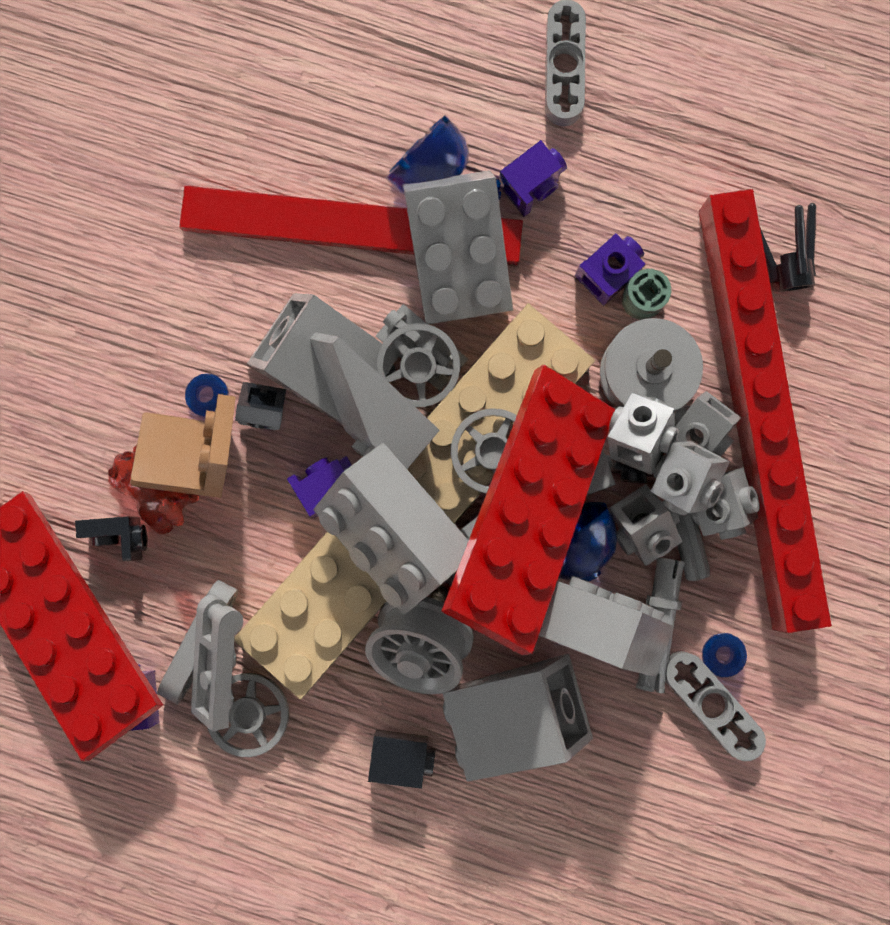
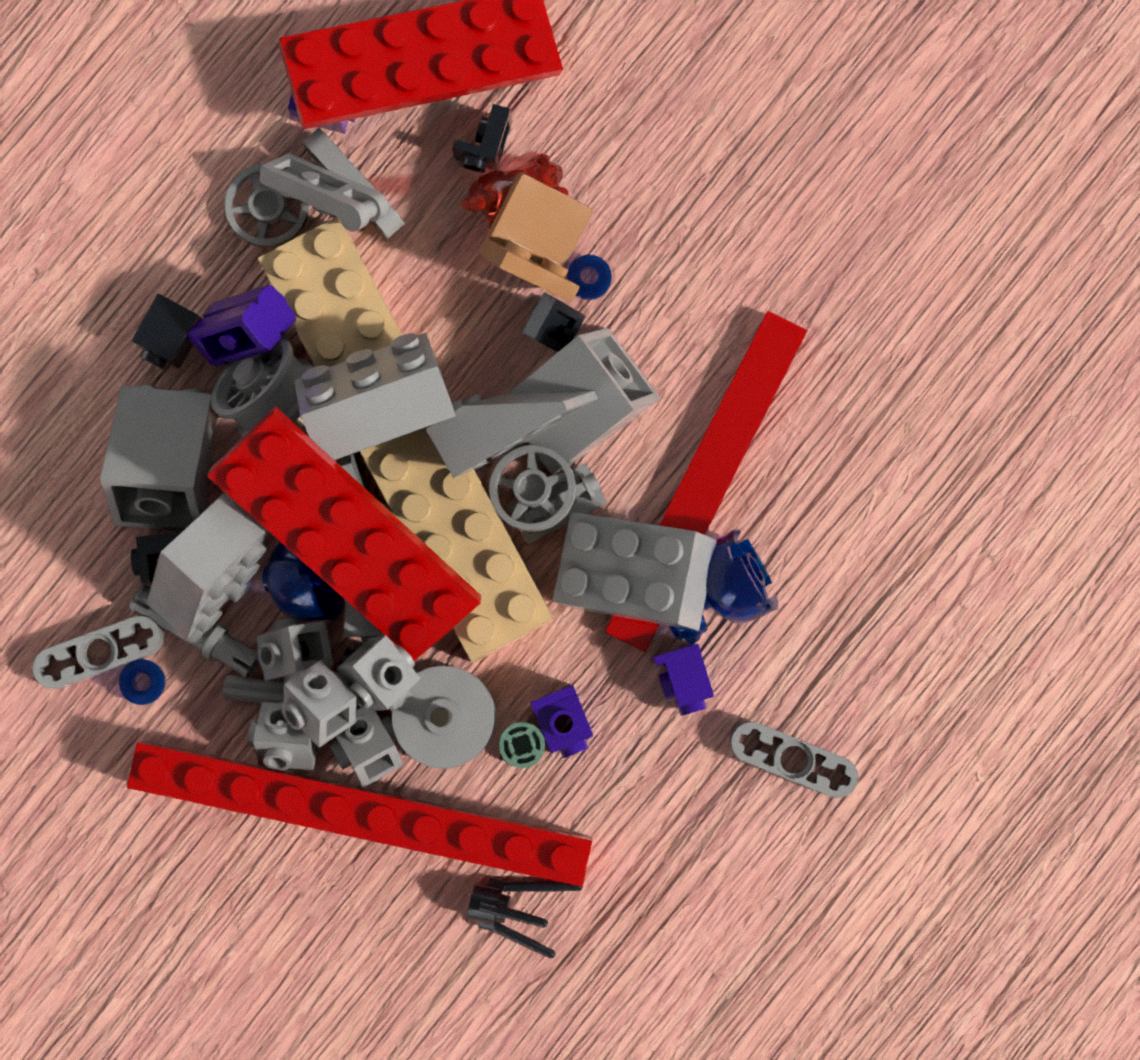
camera: 110 degrees right, 0 degrees up
(318, 481) = (455, 357): dark purple brick -> none
(369, 688) = (242, 326): none -> dark purple brick
(488, 447) = (423, 521): light grey wheel -> none
(595, 678) = (144, 556): none -> black bracket

